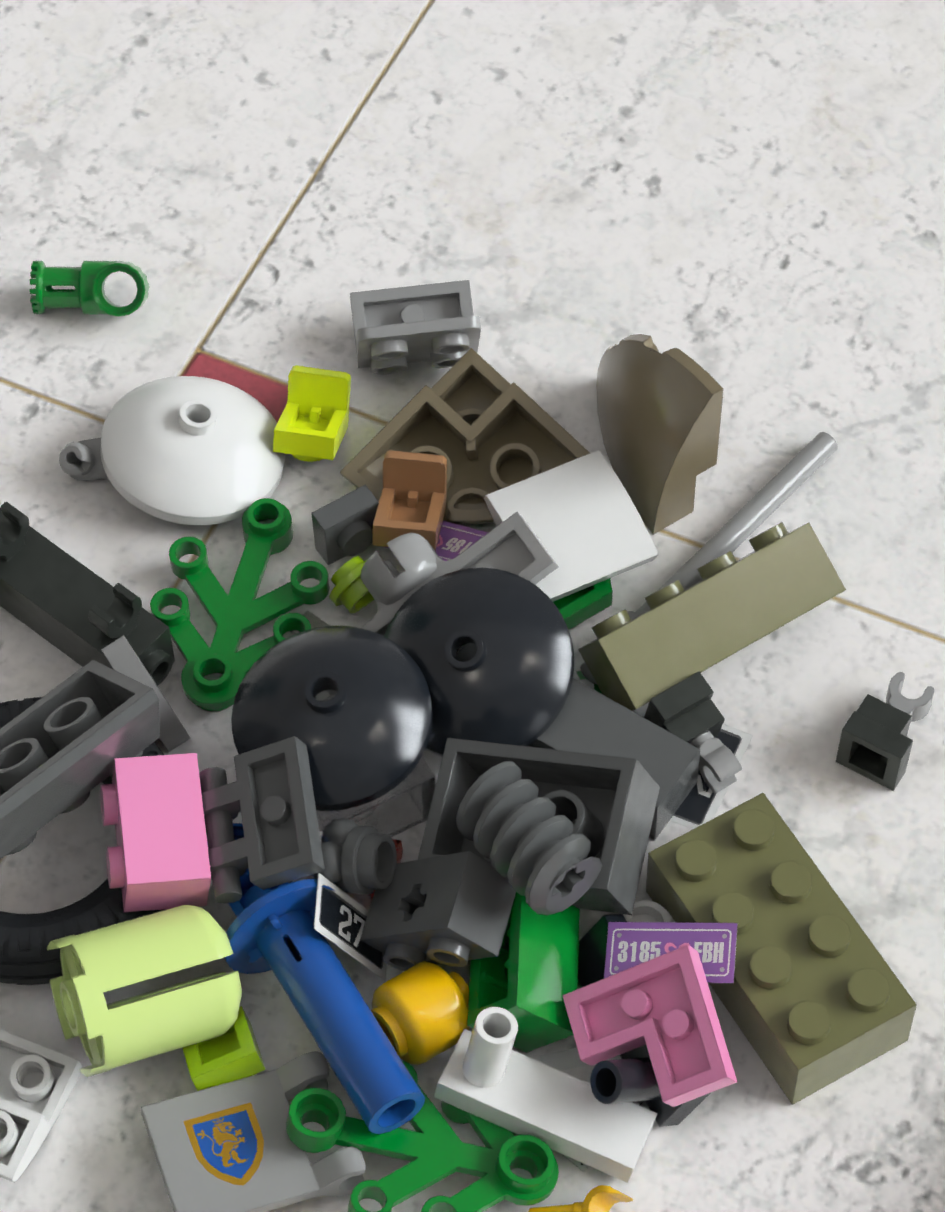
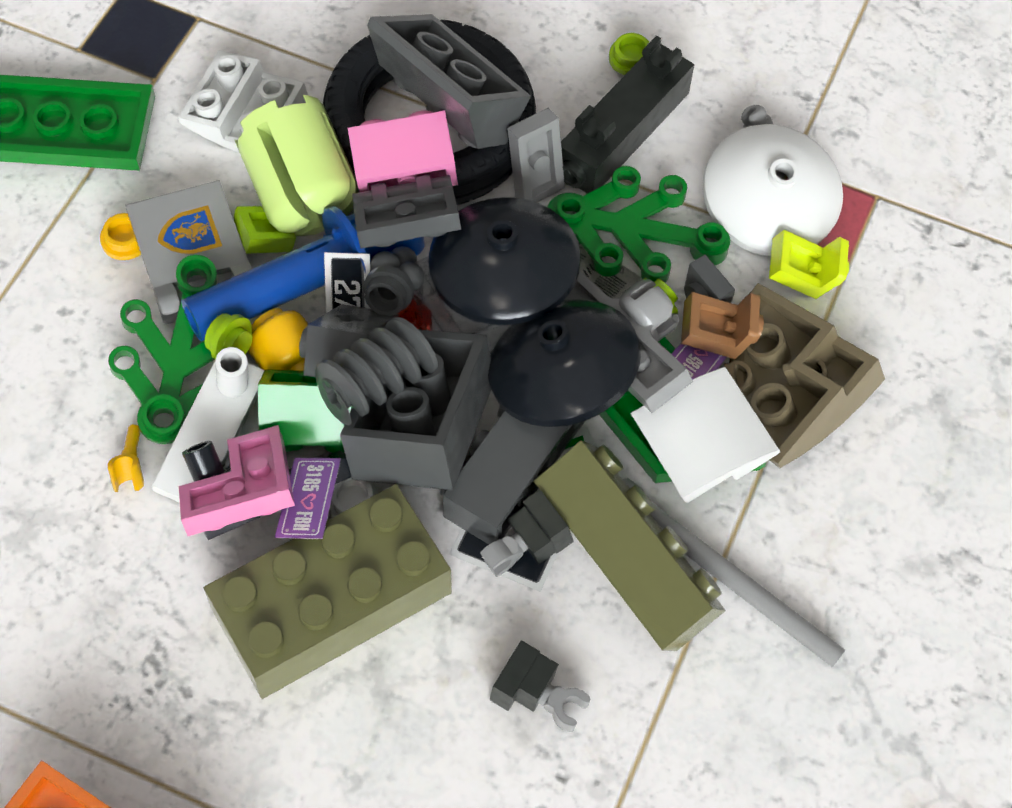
camera: 85 degrees right, 5 degrees up
(88, 285) = (914, 112): green connector -> none
(414, 325) = (904, 328): light grey bracket -> none
(433, 1055) = (228, 332): none -> lime plate
(657, 425) = (813, 499): dark tan brick -> none

